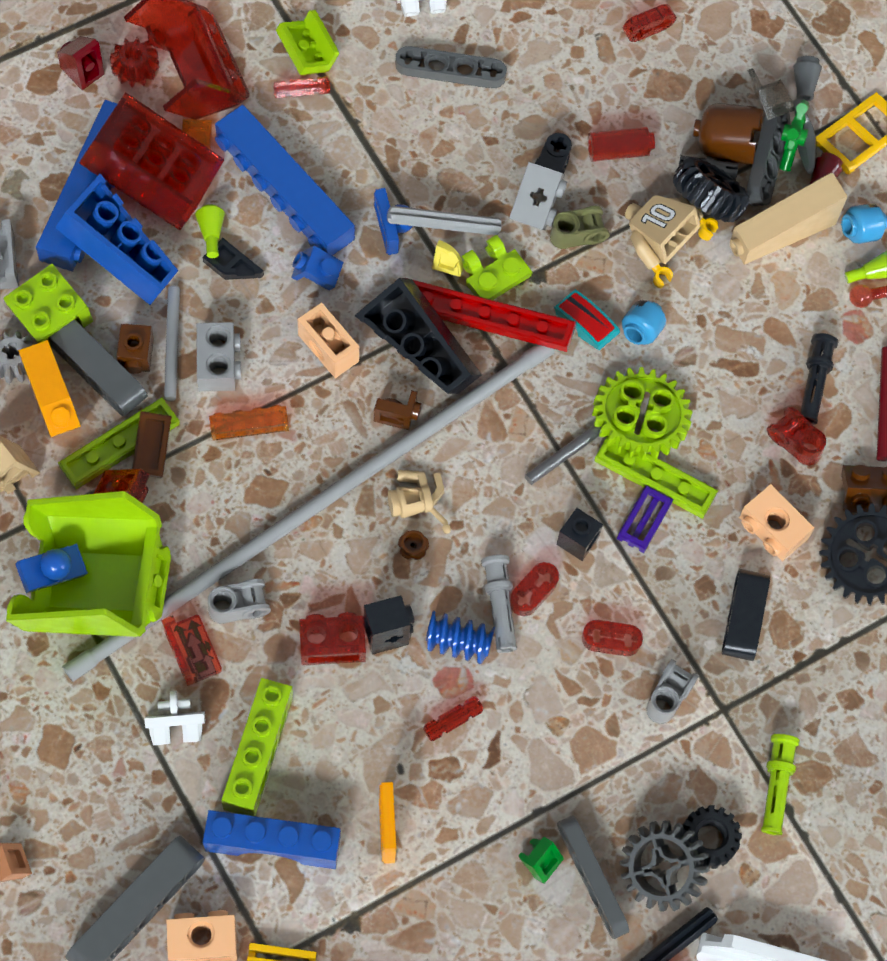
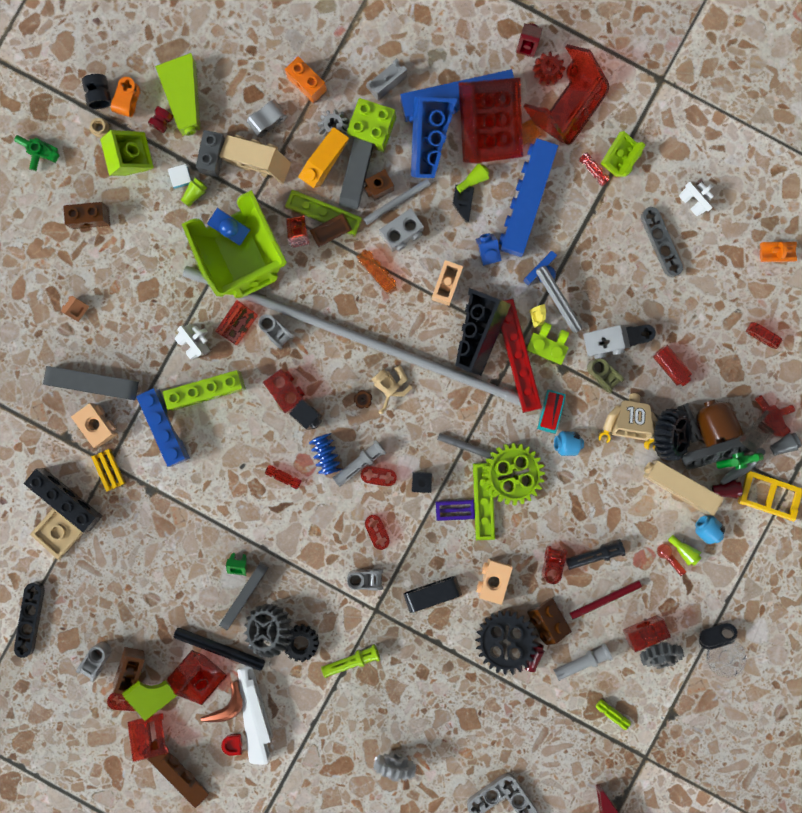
camera: 65 degrees right, 20 degrees up
(387, 822) = (202, 480): light orange tile -> none
(396, 414) = (429, 343): reddish brown bracket -> none
(766, 70) = (774, 418): none -> clear red piece

